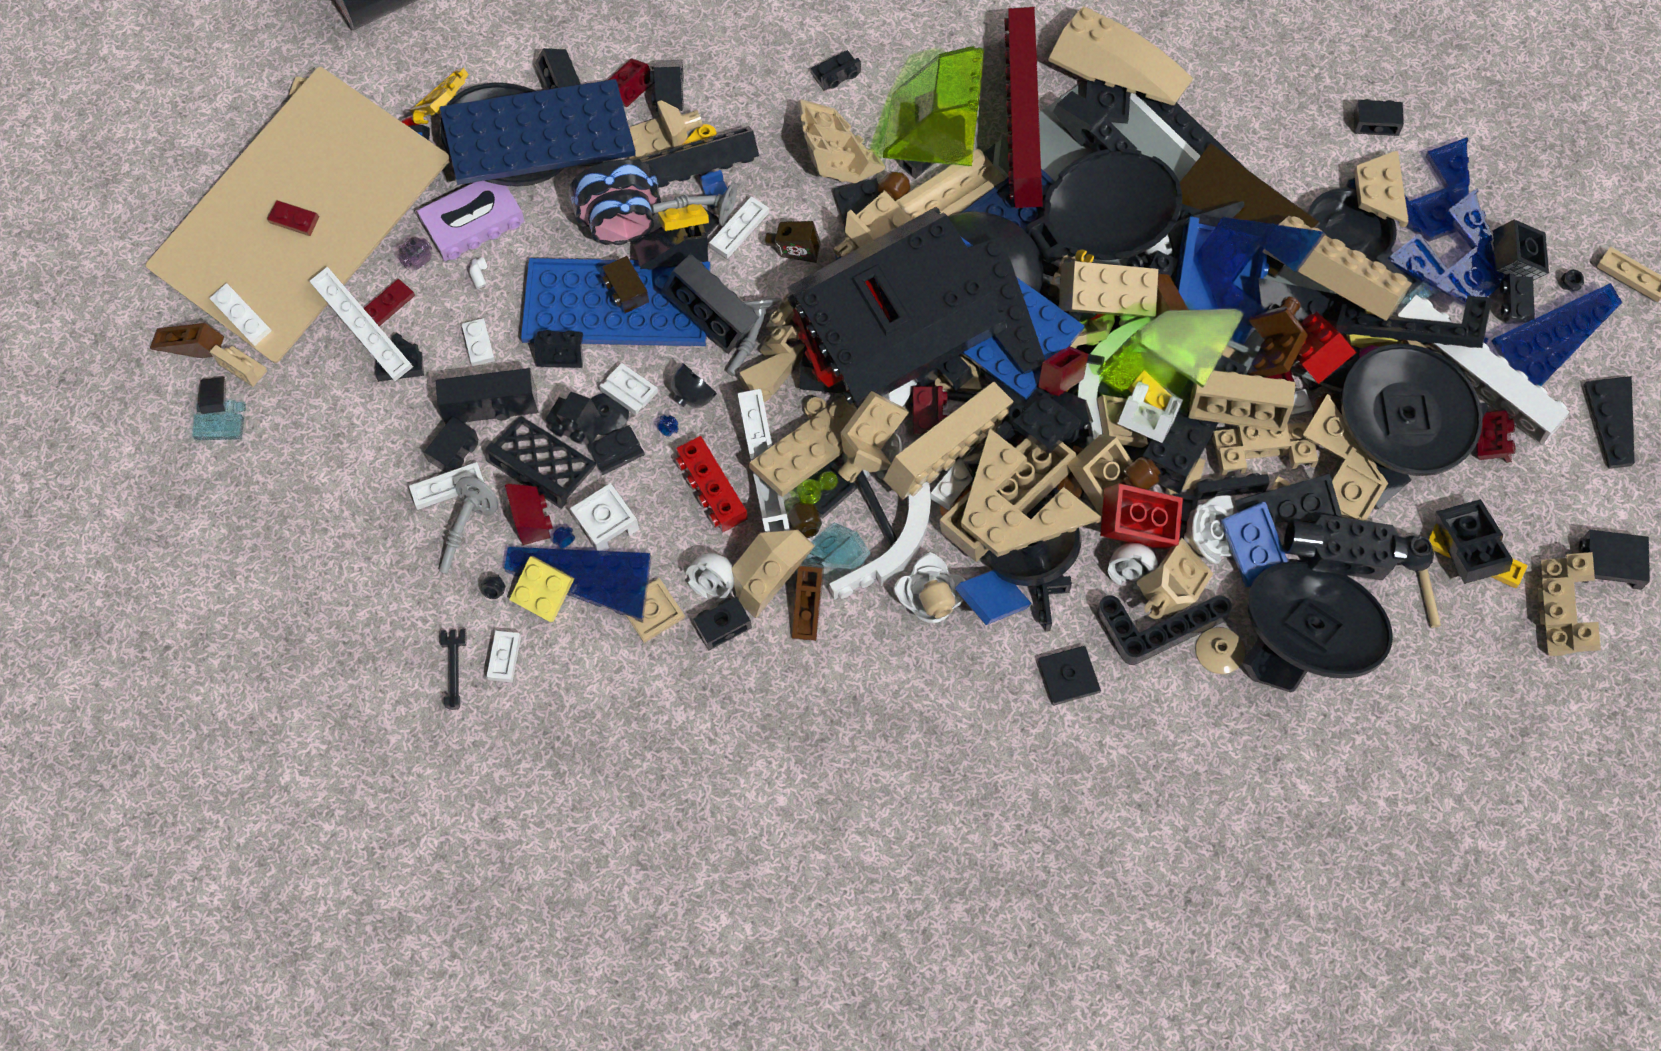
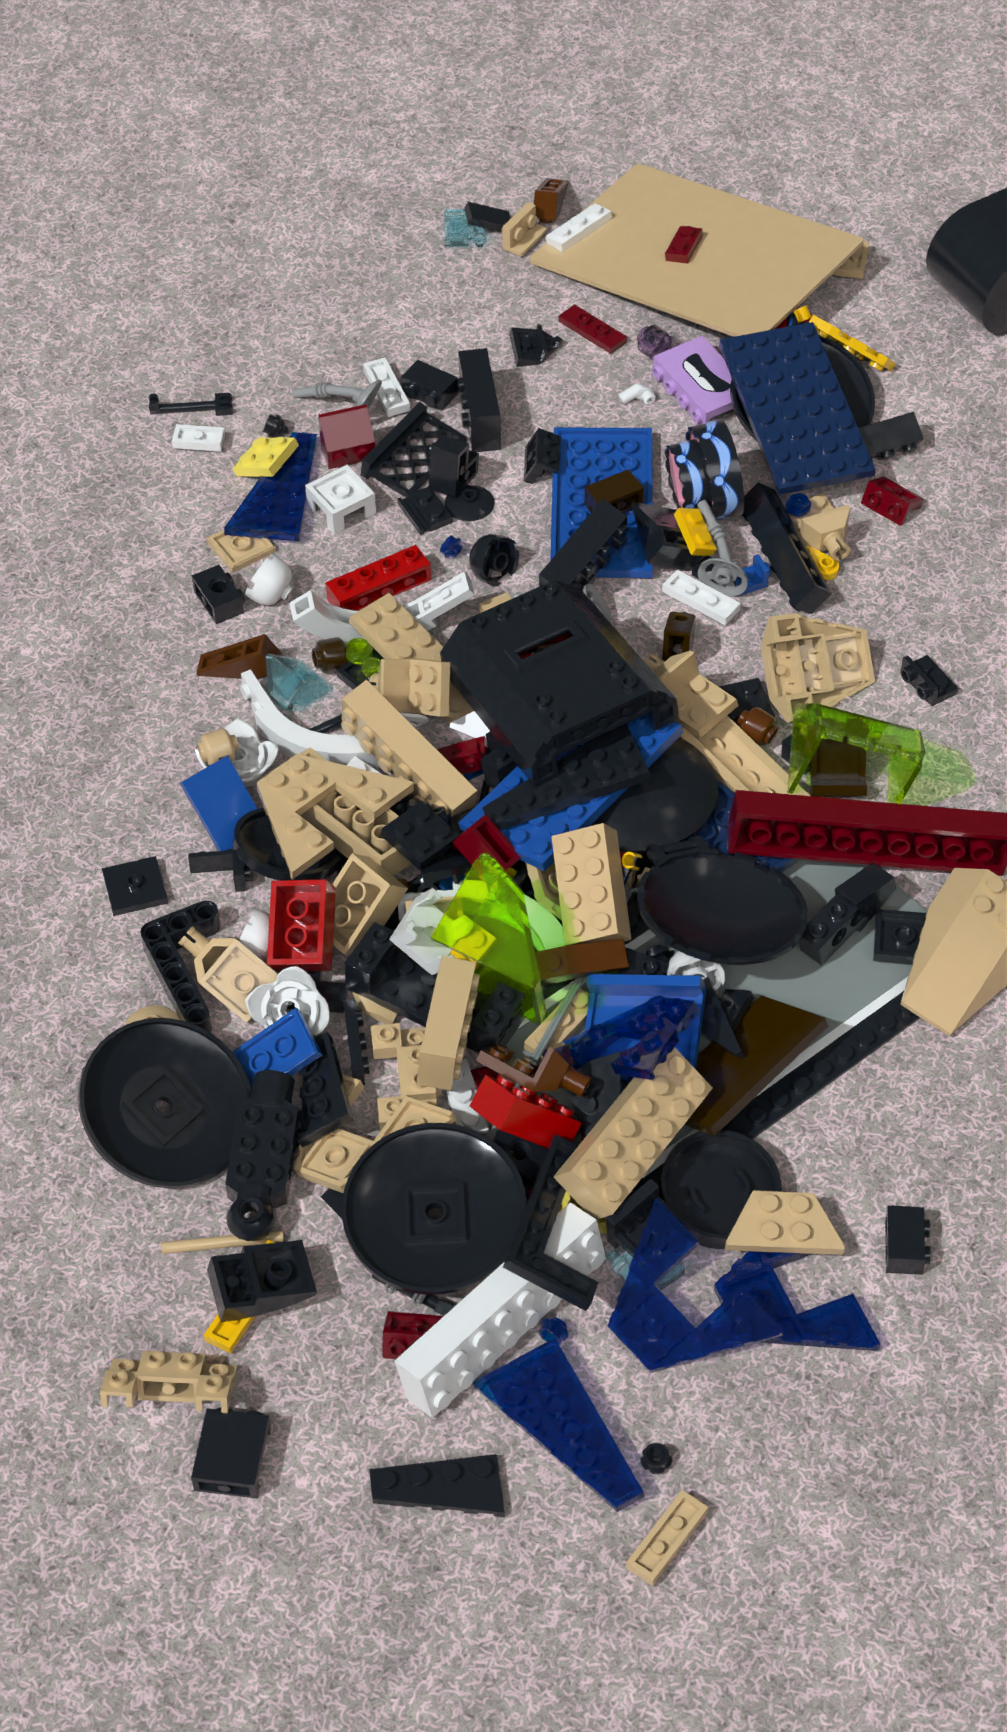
camera: 90 degrees right, 15 degrees down
(361, 324) = (562, 303): white plate -> none
(478, 342) = (553, 401): white plate -> none
(563, 537) = (323, 469): clear blue plate -> none
(628, 389) = (494, 513): white plate -> none
(643, 139) = (798, 504): none -> clear blue plate
(668, 81) = (885, 520): black brick -> none
(768, 566) = (262, 610): tan wedge -> none
(1142, 474) = (349, 921): reddish brown head -> none
(1517, 299) = (619, 1378): black bracket -> none
(1520, 250) = (687, 1378): black brick -> none

